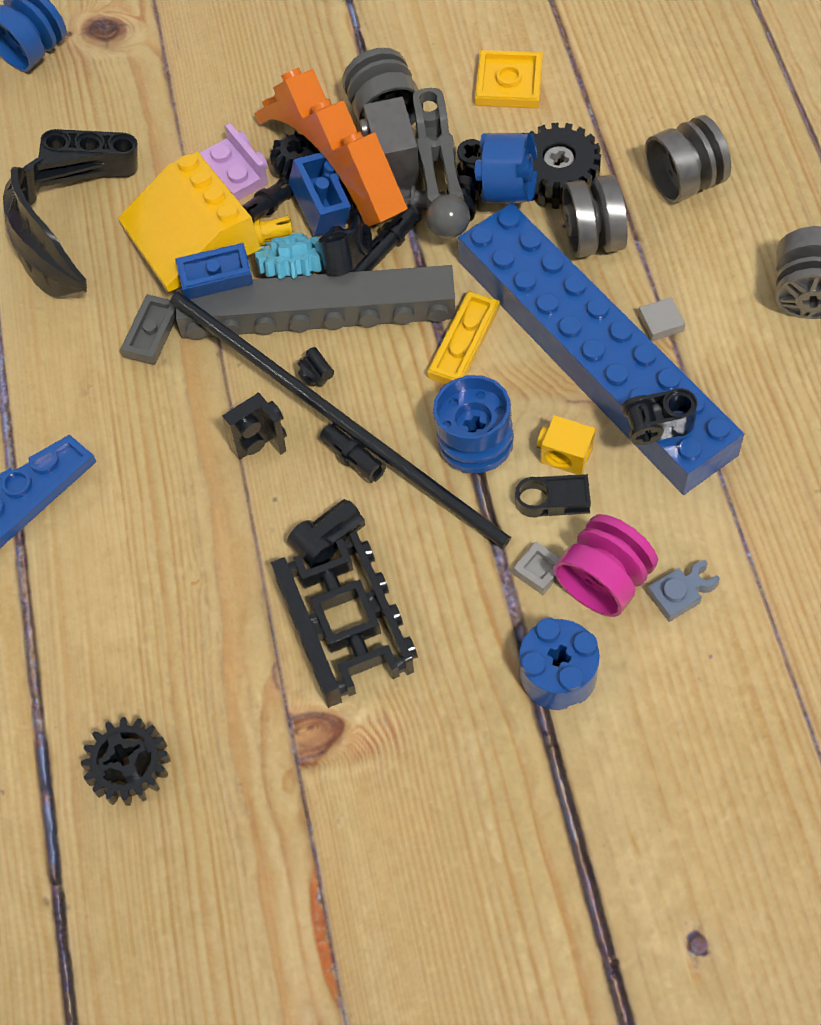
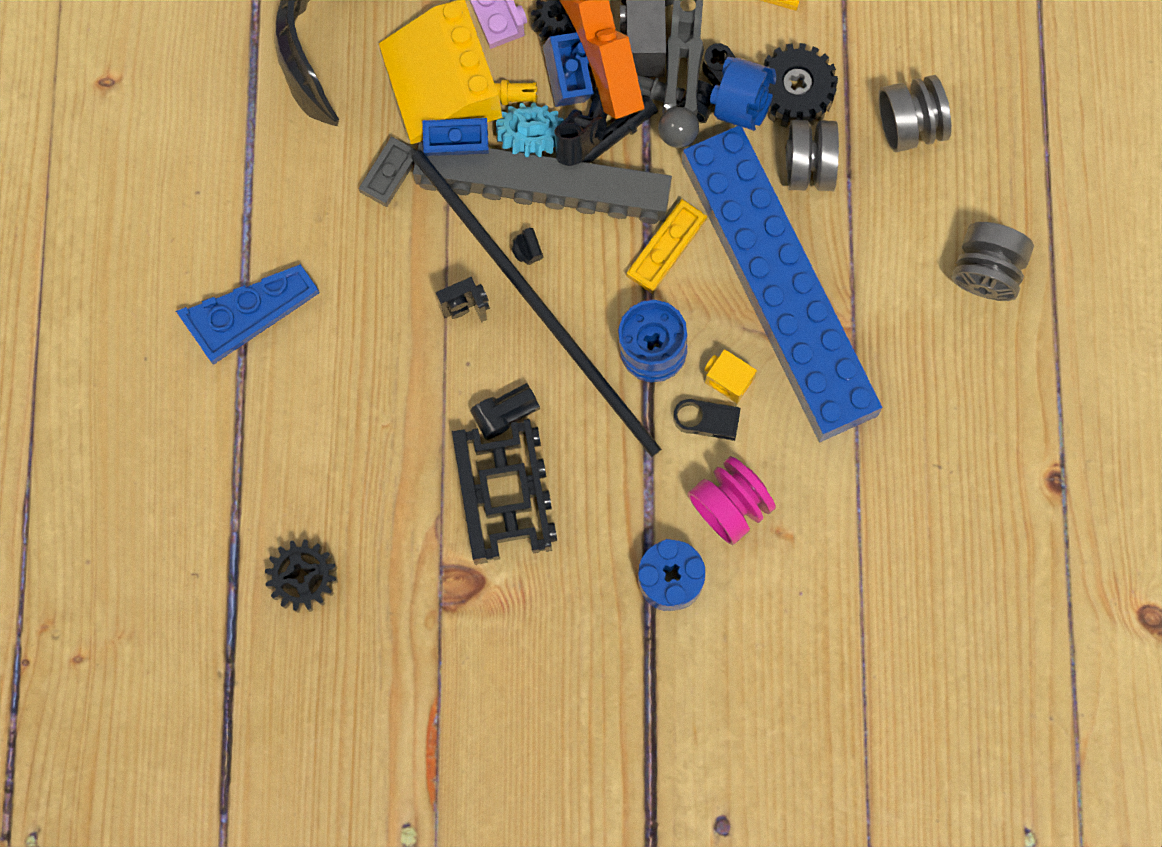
camera: 10 degrees right, 15 degrees up
(267, 200) = (517, 63): black pin -> none
(352, 453) = (543, 339): black pin -> none
(537, 568) = (677, 482): light grey tile -> none
(657, 415) = (808, 380): black piece -> none
(661, 319) = (847, 268): light grey tile -> none
(680, 593) = (788, 532): sand blue plate -> none

